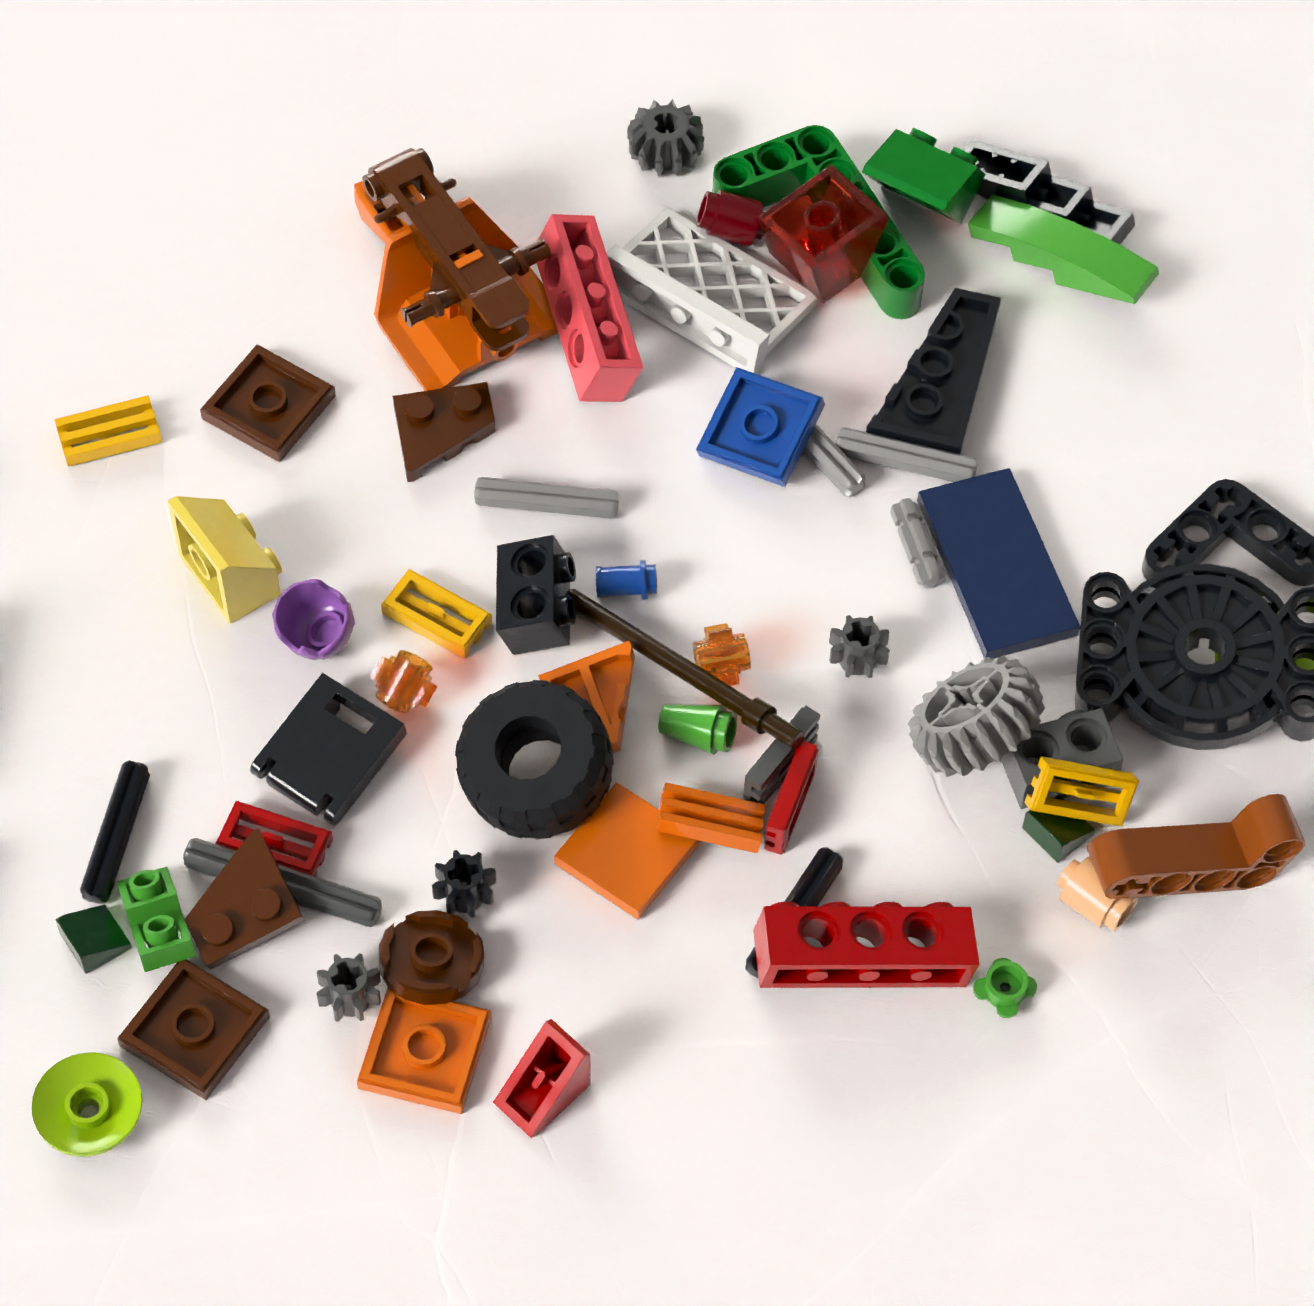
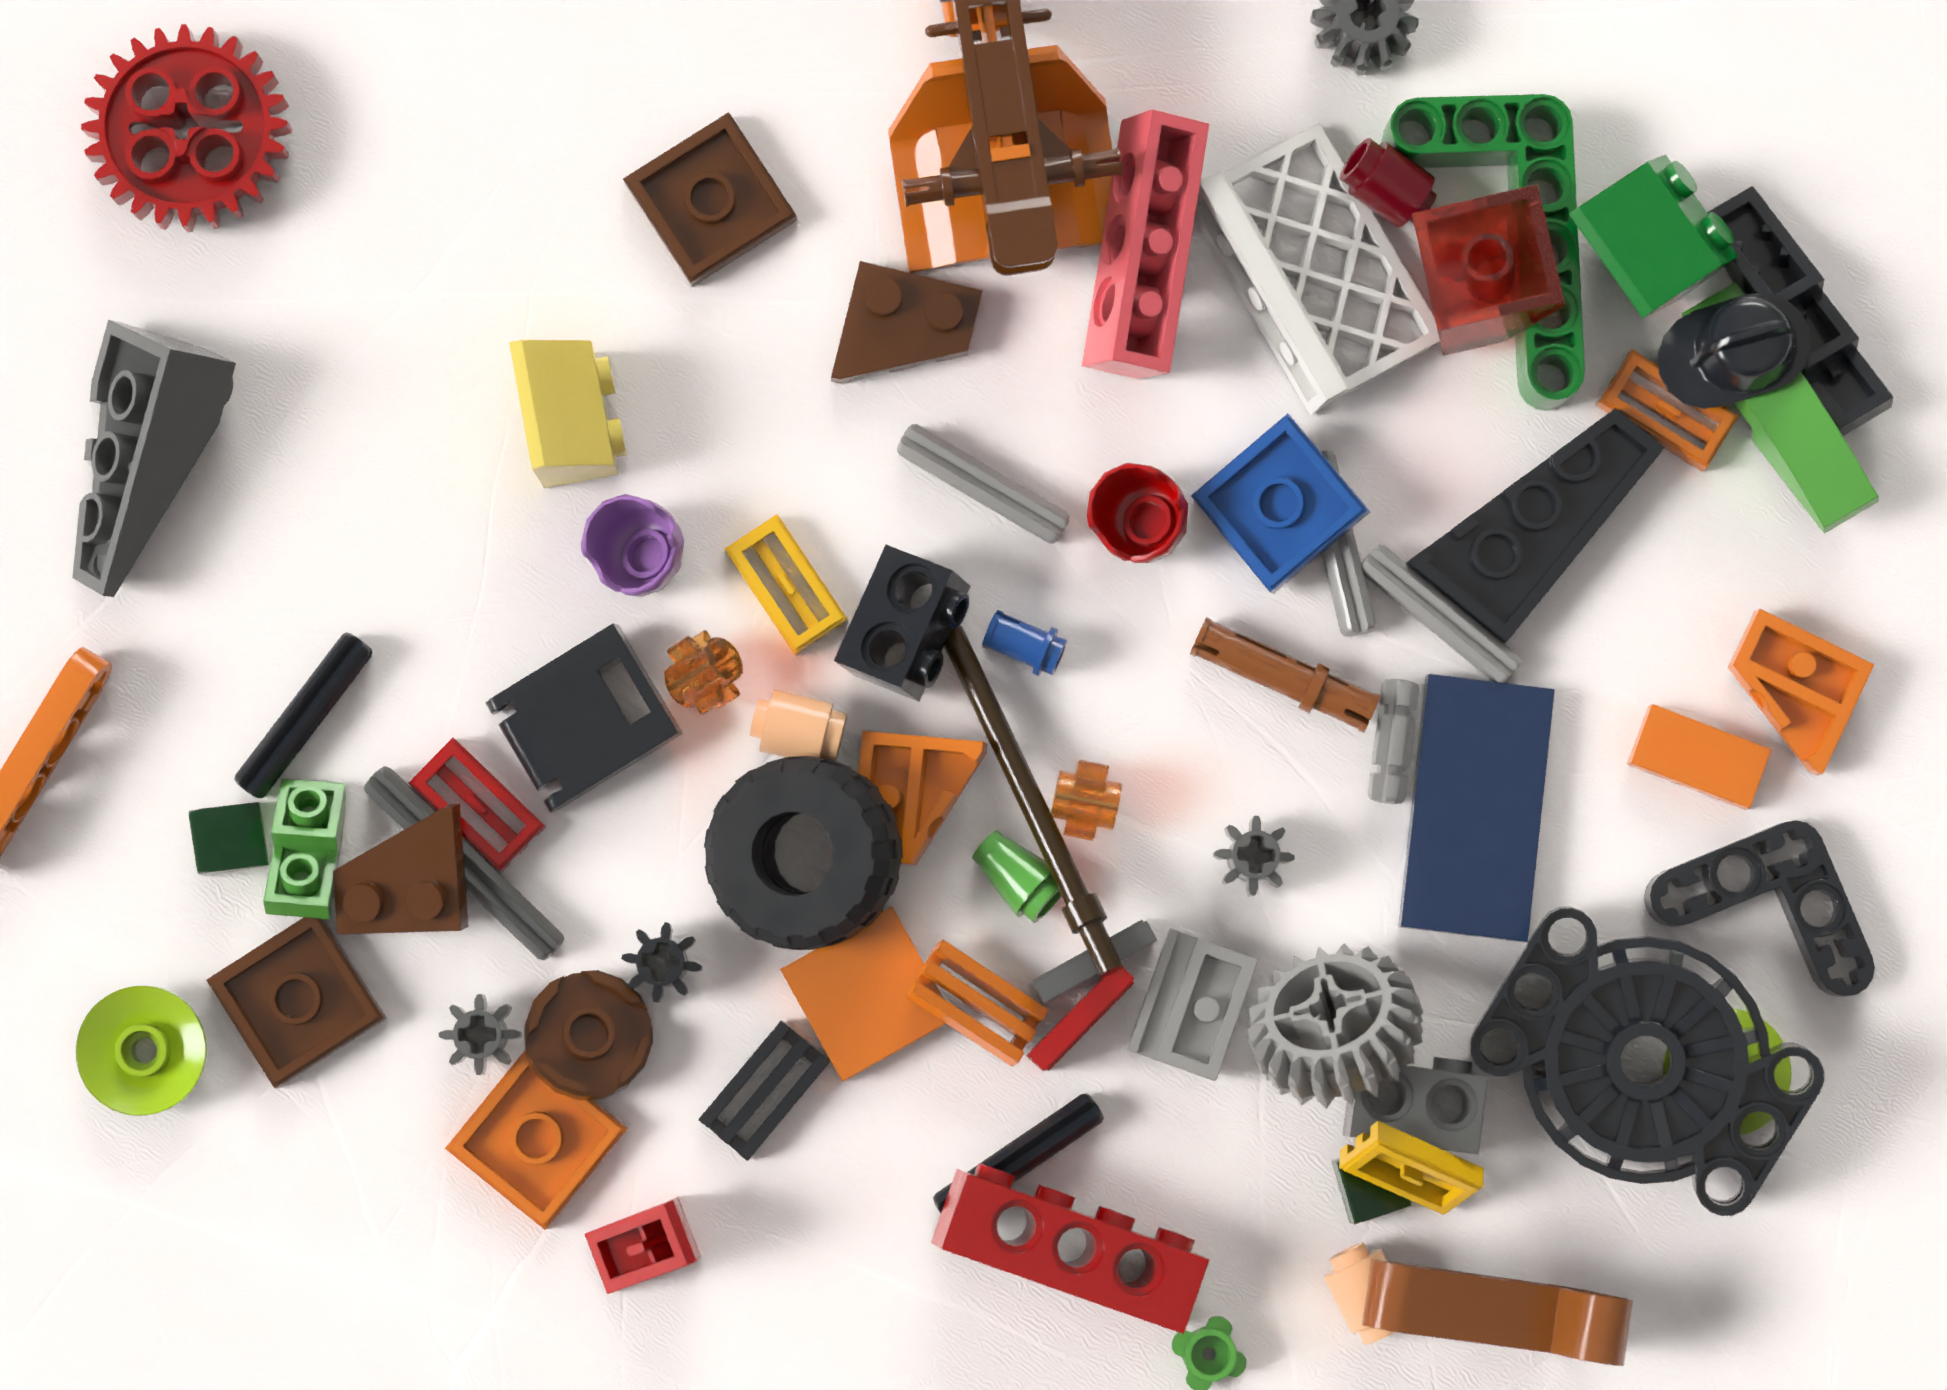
camera: 15 degrees right, 25 degrees up
(107, 424) = (509, 135): yellow tile -> none
(481, 682) = (798, 726): none -> light nougat brick
(593, 907) = (729, 1132): none -> black tile
(664, 465) = (1137, 513): none -> red hair
(820, 530) = (1285, 675): none -> dark orange pin
(867, 759) = (1192, 1004): none -> light grey plate
(1013, 222) = (1734, 350): none -> black piece
(1013, 296) = (1671, 441): none -> orange tile
(1130, 474) = (1699, 757): none -> orange tile
(1171, 402) = (1799, 685): none -> orange wing

